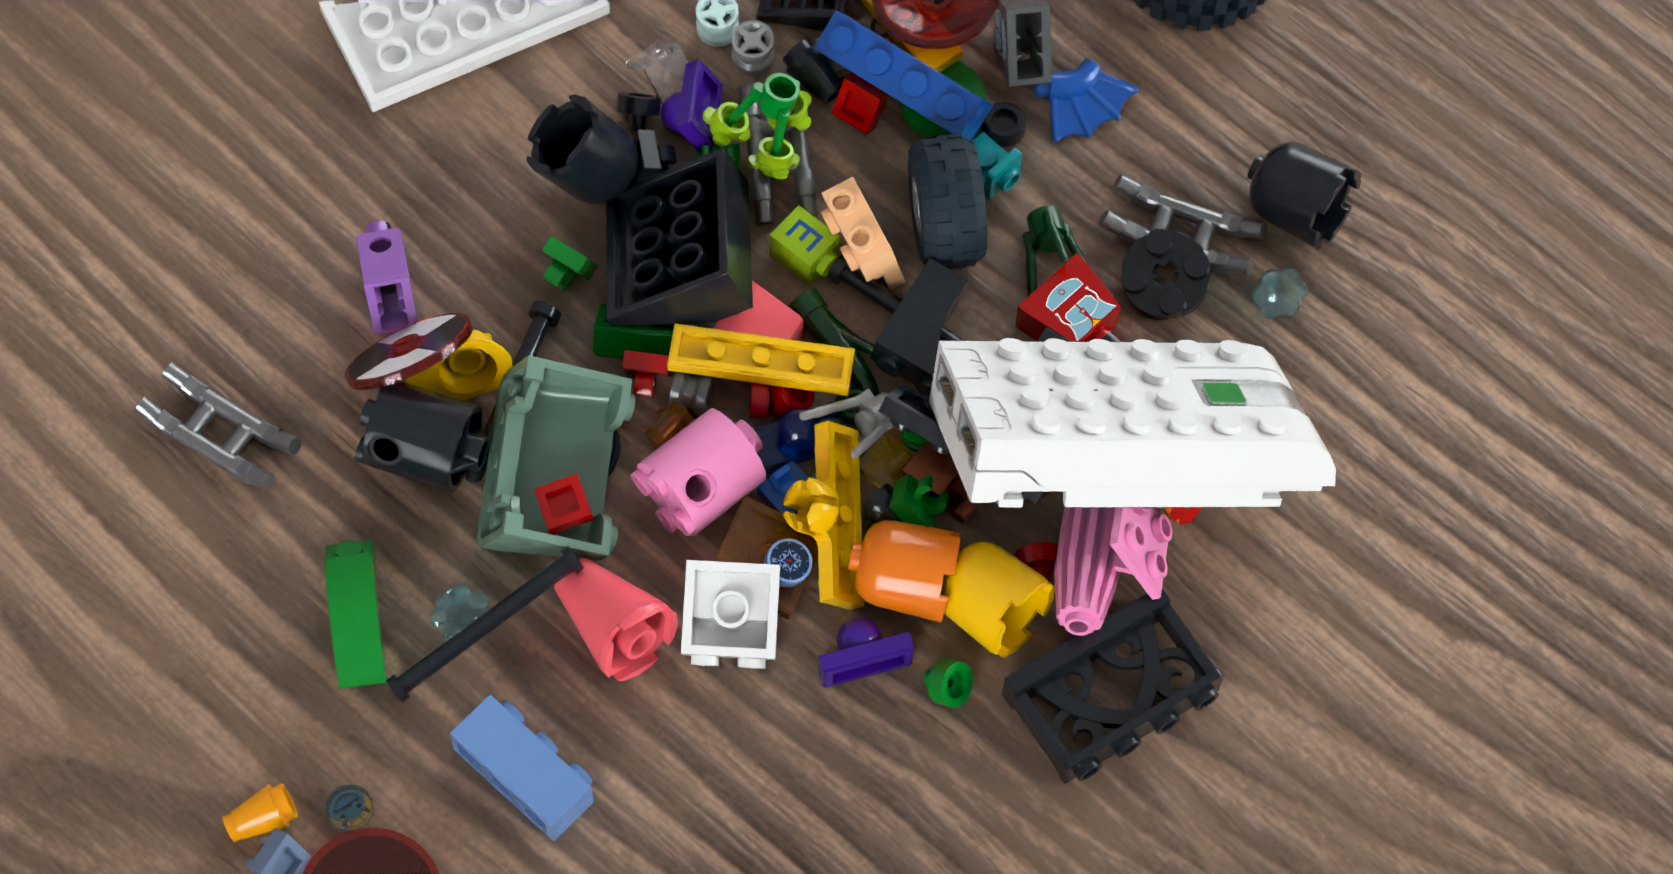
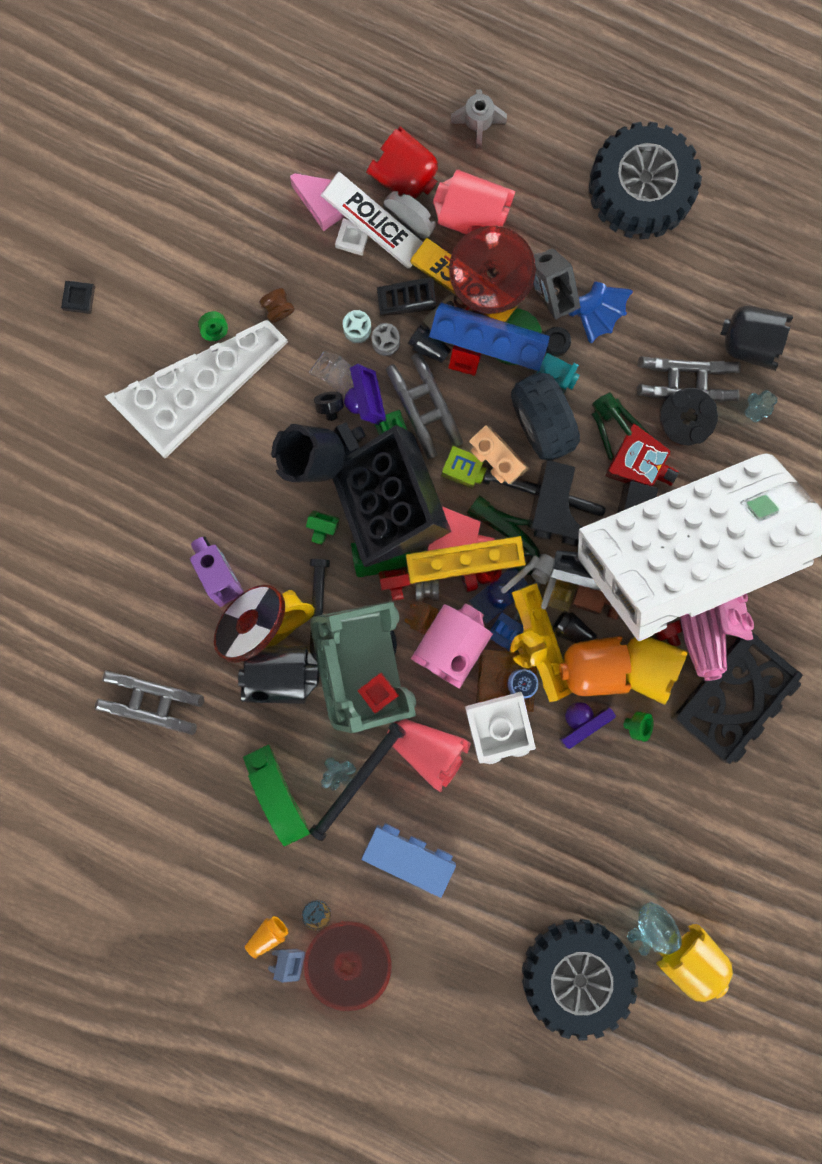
camera: 15 degrees left, 20 degrees up
(783, 105) = (422, 387): plant -> none
(913, 502) = (588, 622): green tile -> none

